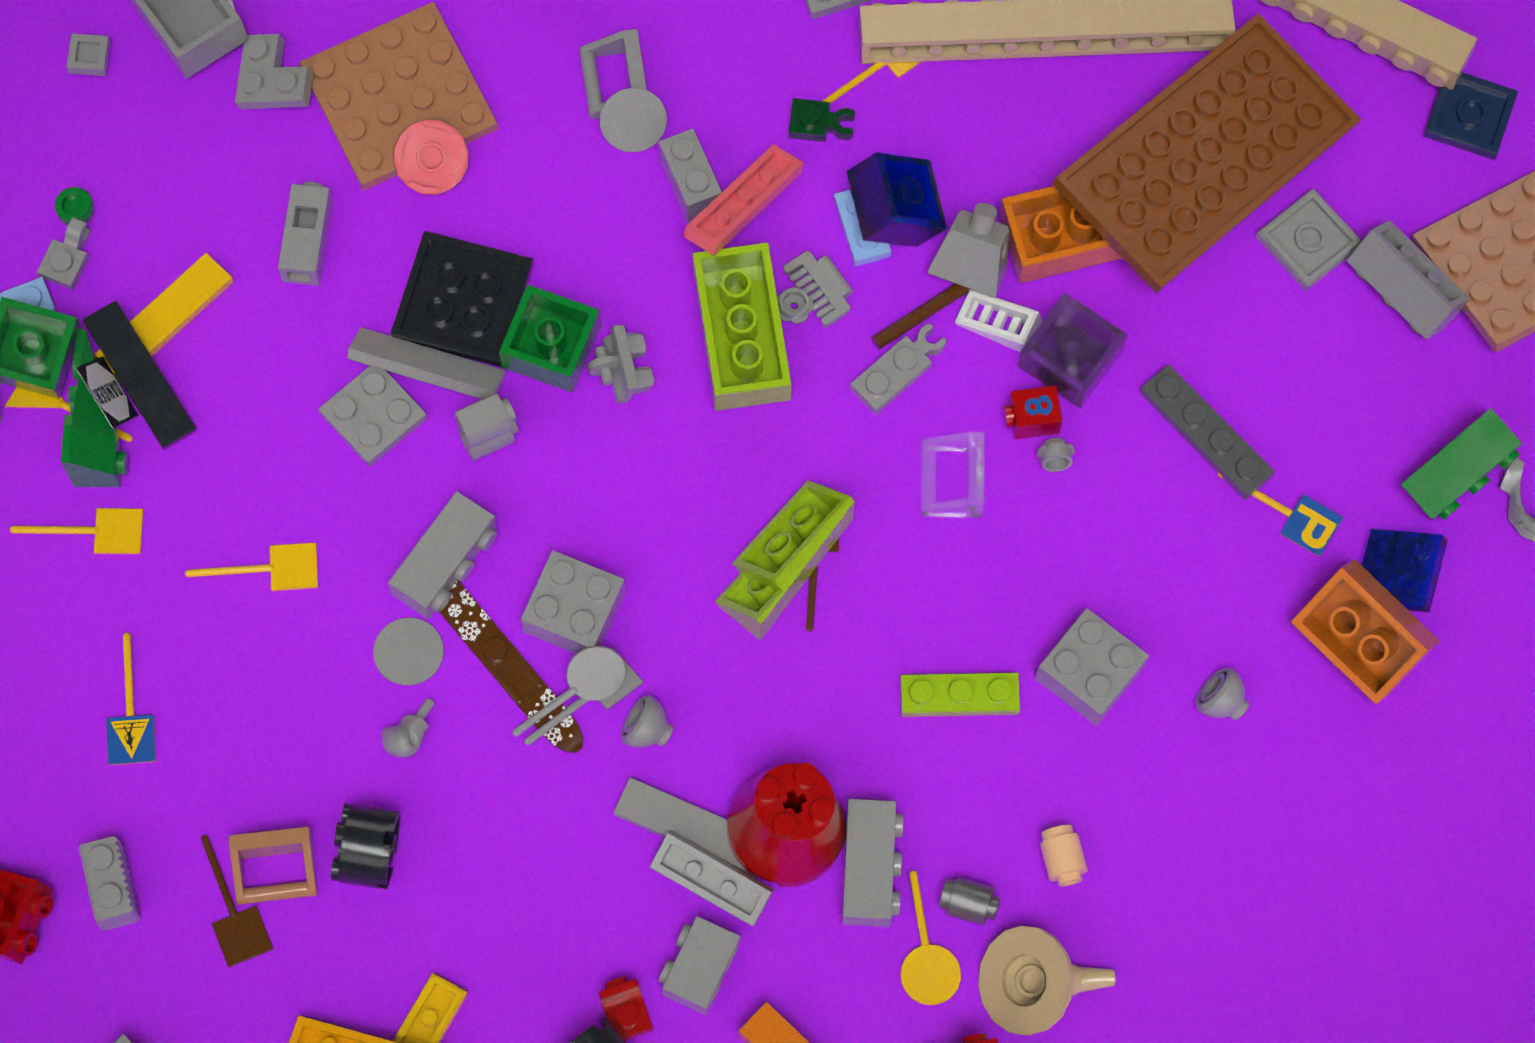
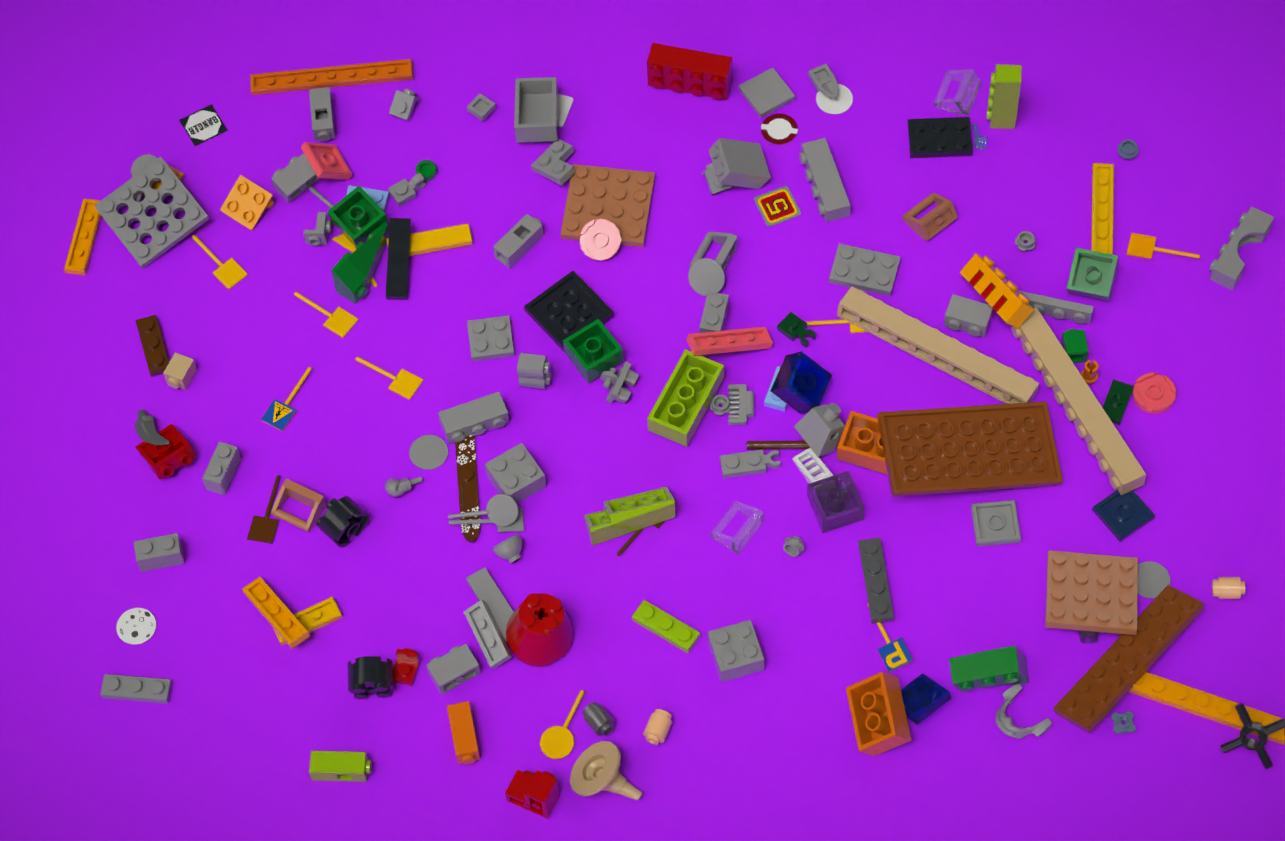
camera: 40 degrees right, 10 degrees down
(107, 391) = (377, 255): sticker -> none
(425, 364) = (529, 329): light grey tile -> none
(871, 863) = (565, 673): light grey brick -> none
(1033, 412) = (796, 520): red brick -> none
(1223, 695) = (790, 704): light grey brick -> none
(1407, 279) = (1027, 567): light grey brick -> none

